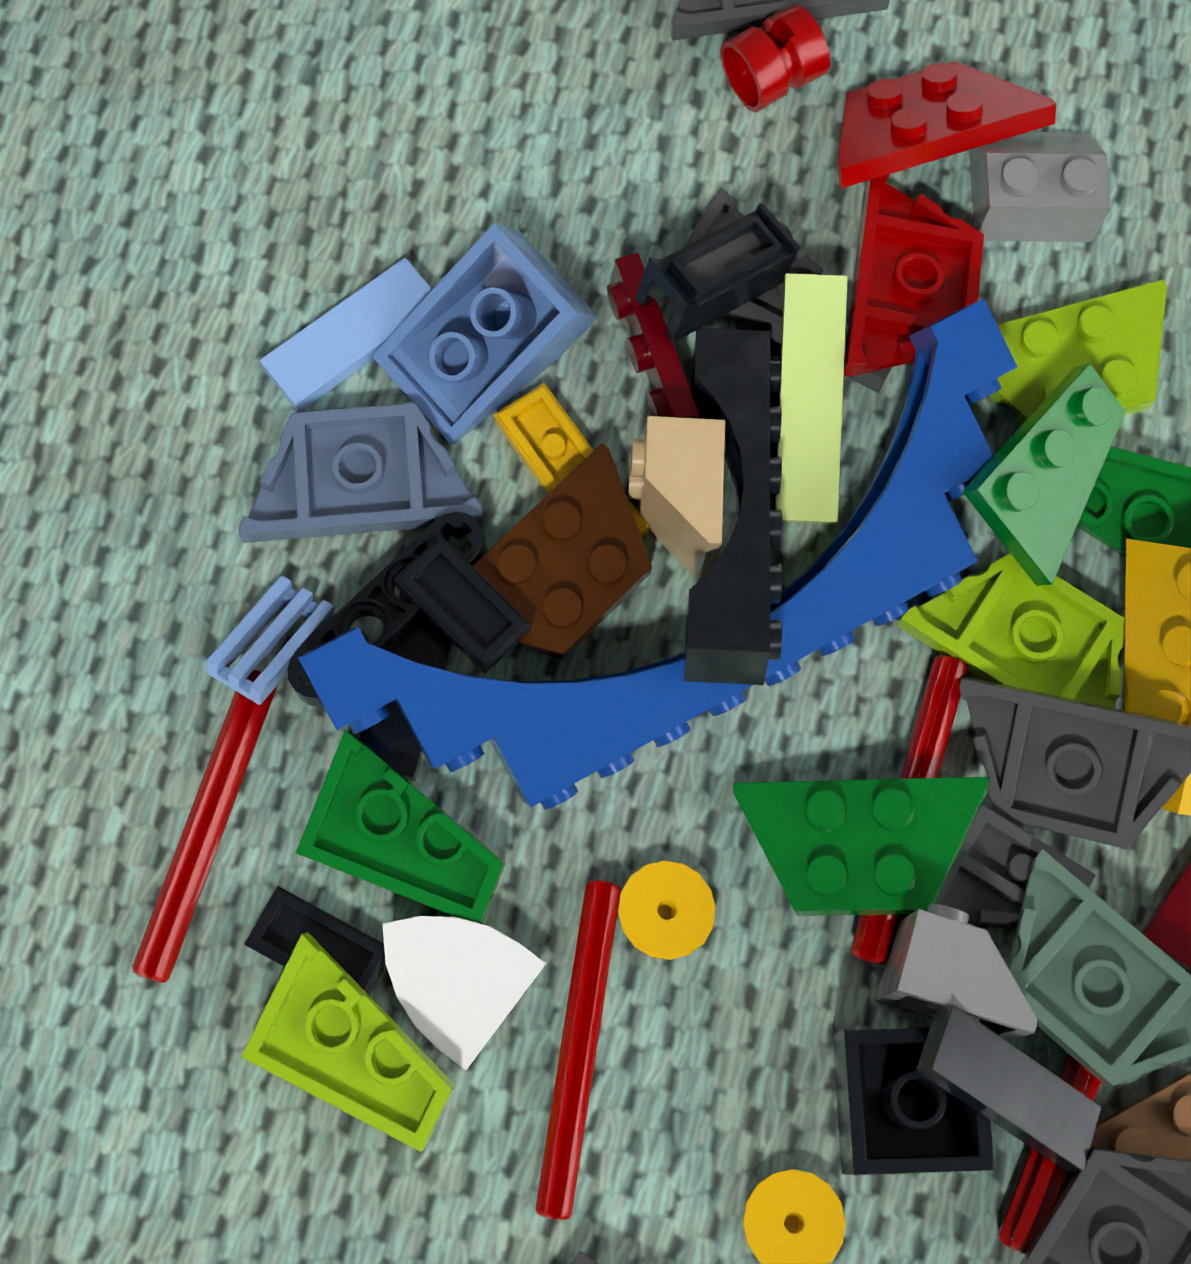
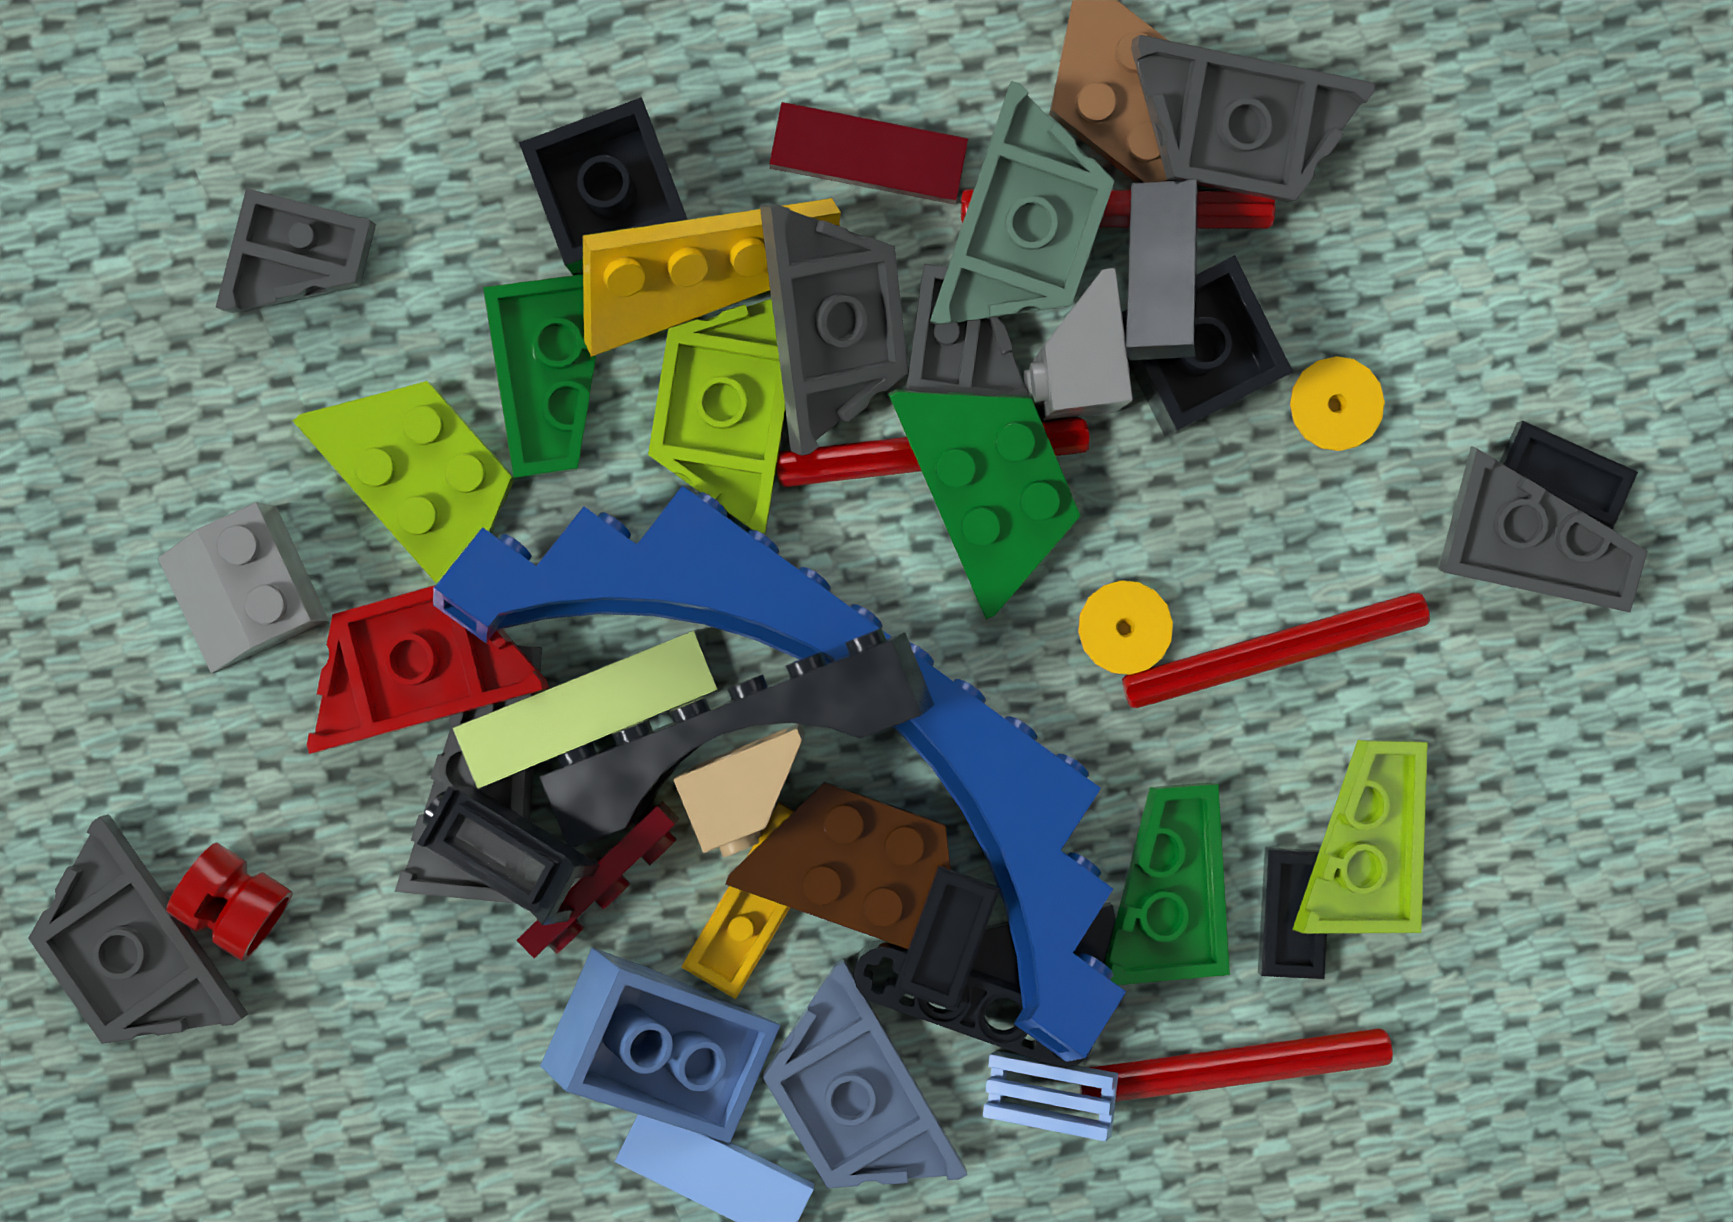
camera: 110 degrees left, 15 degrees up
(456, 979) = (1269, 781): white sticker -> none
(932, 117) = (227, 719): red wing -> none
(1047, 471) = (564, 455): wing -> none

